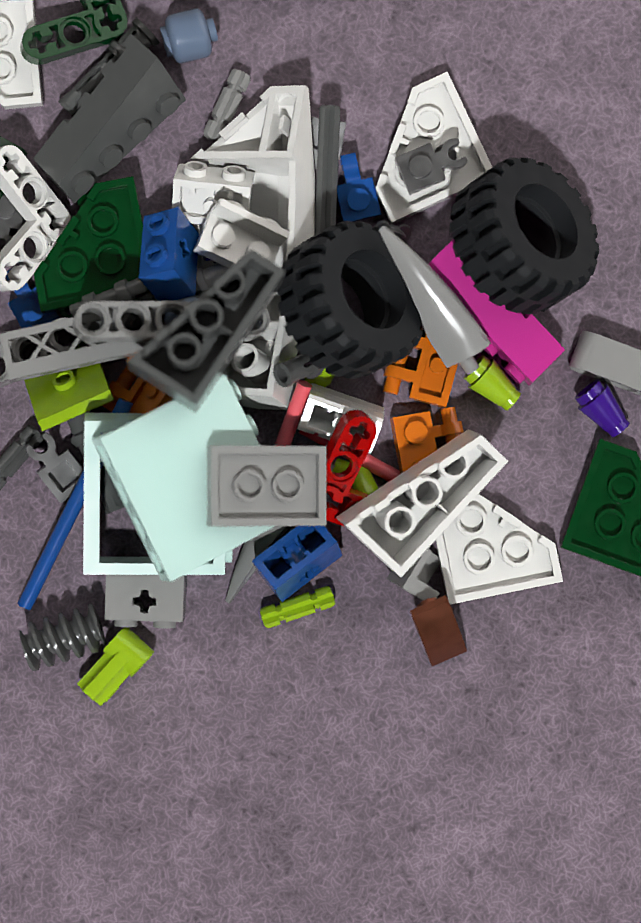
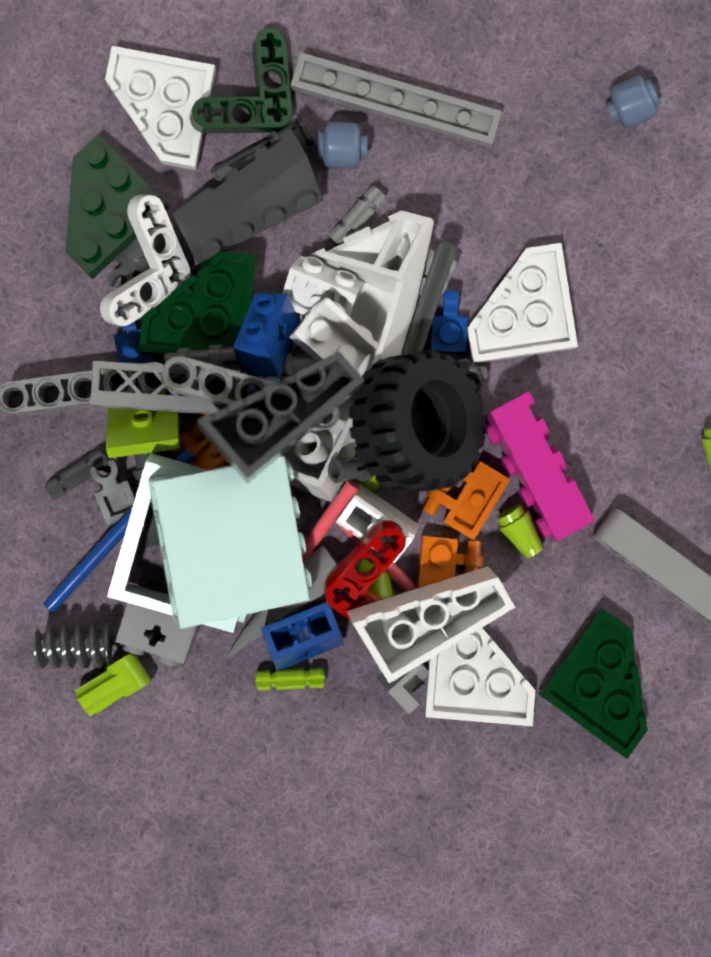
camera: 15 degrees right, 0 degrees up
(266, 485) = (291, 567): light grey plate -> none
(424, 167) = (516, 322): flat silver plate -> none
(438, 630) = (408, 737): copper slope -> none
(444, 317) = (495, 460): light grey piece -> none
(528, 269) = (587, 409): black tyre -> none
(602, 407) = (612, 581): dark purple cone -> none

